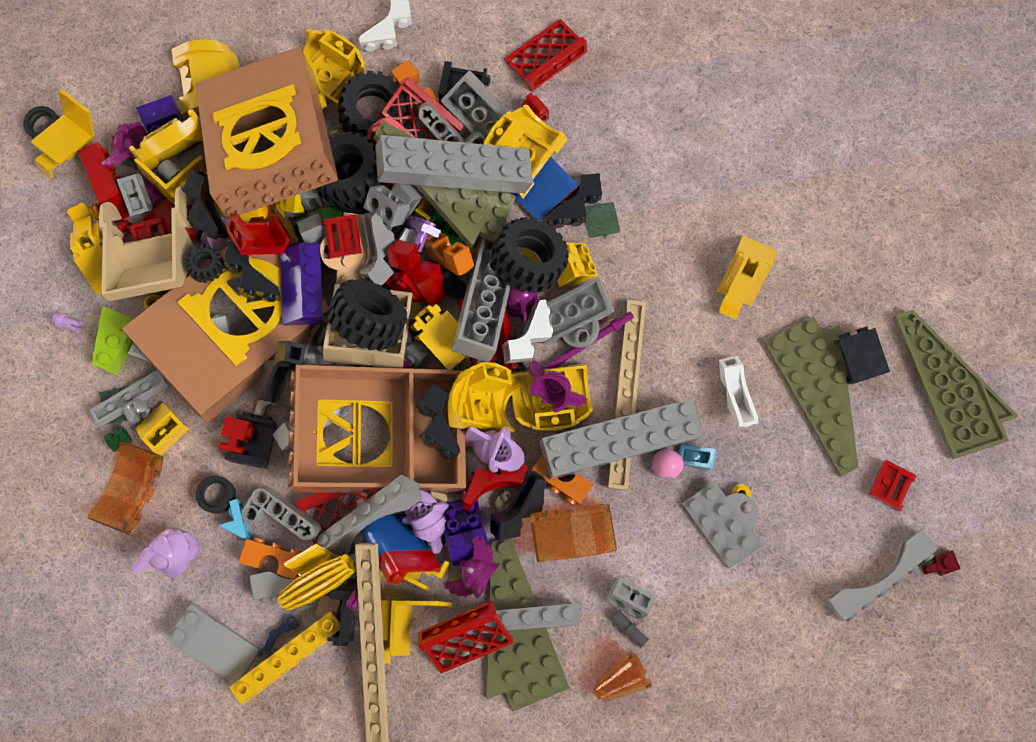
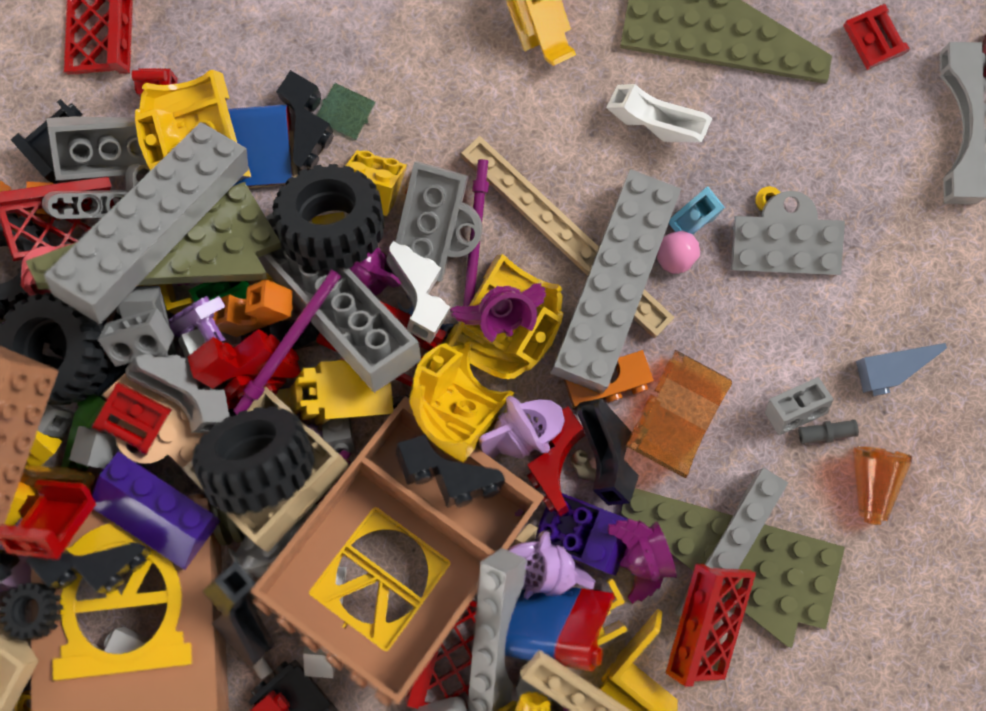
camera: 50 degrees left, 5 degrees up
(406, 287) = (256, 388): none -> magenta bar
(694, 638) = (891, 369): none -> sand blue slope

